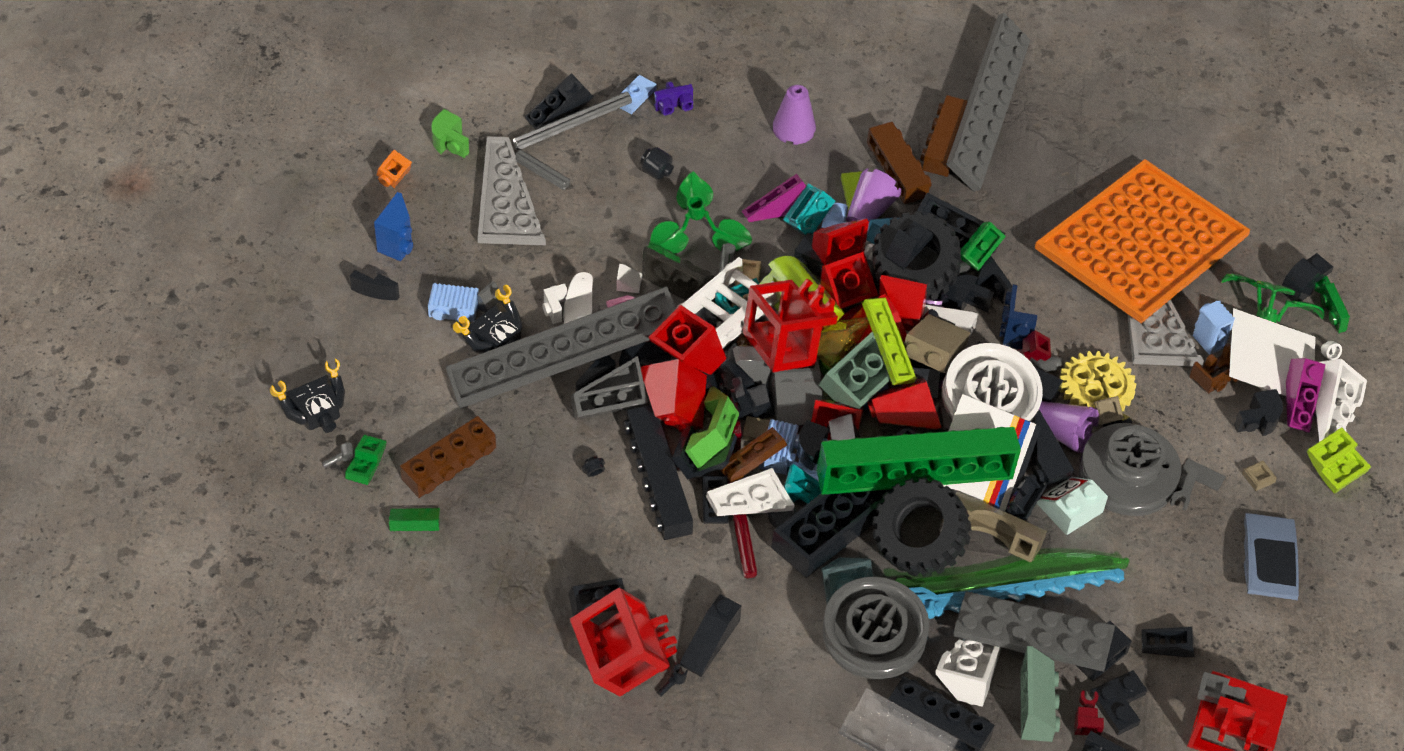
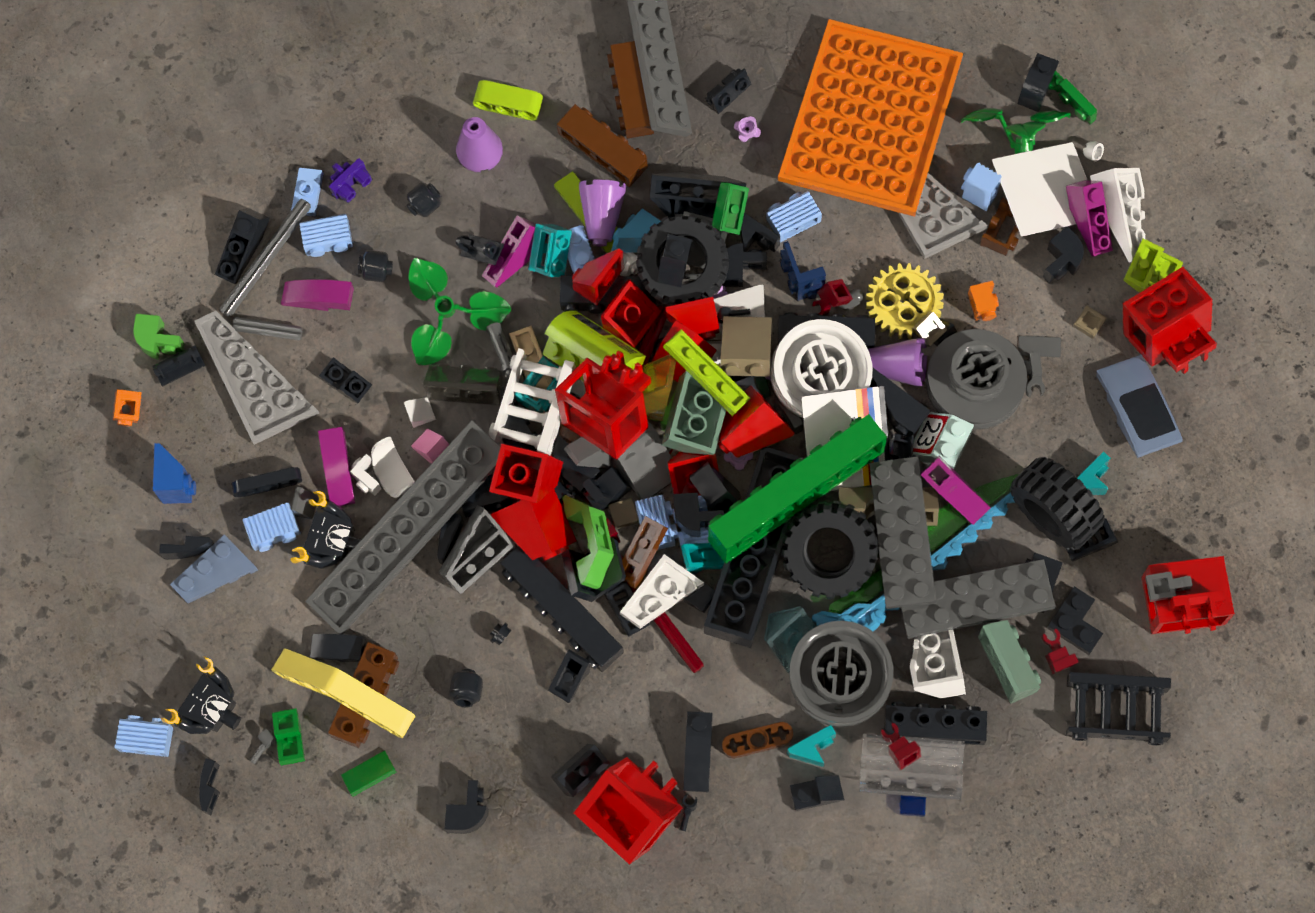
camera: 20 degrees left, 20 degrees up
(247, 401) = (144, 736): none -> light blue brick
(271, 465) = (207, 793): none -> black slope
(387, 312) = (216, 567): none -> sand blue wing
(438, 438) = (345, 690): none -> light yellow beam
(447, 162) = (178, 365): none -> black hinge
(448, 411) = (337, 647): none -> black slope
(456, 268) = (266, 482): none -> black beam
(479, 589) = (468, 817): none -> black brick
(534, 282) = (337, 466): none -> magenta slope
(538, 492) = (466, 688): none -> black head
(581, 232) = (345, 381): none -> black slope
(599, 163) = (318, 294): none -> magenta slope
(631, 127) = (326, 235): none -> light blue brick
(633, 522) = (569, 676): none -> black slope
(726, 137) = (423, 199): none -> black head
(750, 188) = (479, 248): none -> black hinge
(776, 664) = (777, 742): none -> reddish brown beam
(798, 722) = (818, 792): none -> black slope
(811, 679) = (806, 749): none -> teal slope
(838, 101) = (507, 100): none -> lime beam
(885, 427) = (738, 463): none -> lavender plate
(896, 712) = (900, 749): none -> dark red piece
(994, 545) = (902, 533): none -> dark grey plate
(1029, 205) = (748, 122): none -> lavender plate
(1030, 173) = (734, 83): none -> black hinge
(1035, 281) = (794, 215): none -> light blue brick
(1062, 535) = (955, 490): none -> magenta slope
(1151, 584) = (1057, 503): none -> black tyre
(1169, 414) = (983, 301): none -> orange brick
(1192, 592) = (1096, 468): none -> teal slope
(1336, 498) = (1175, 321): none -> red piece

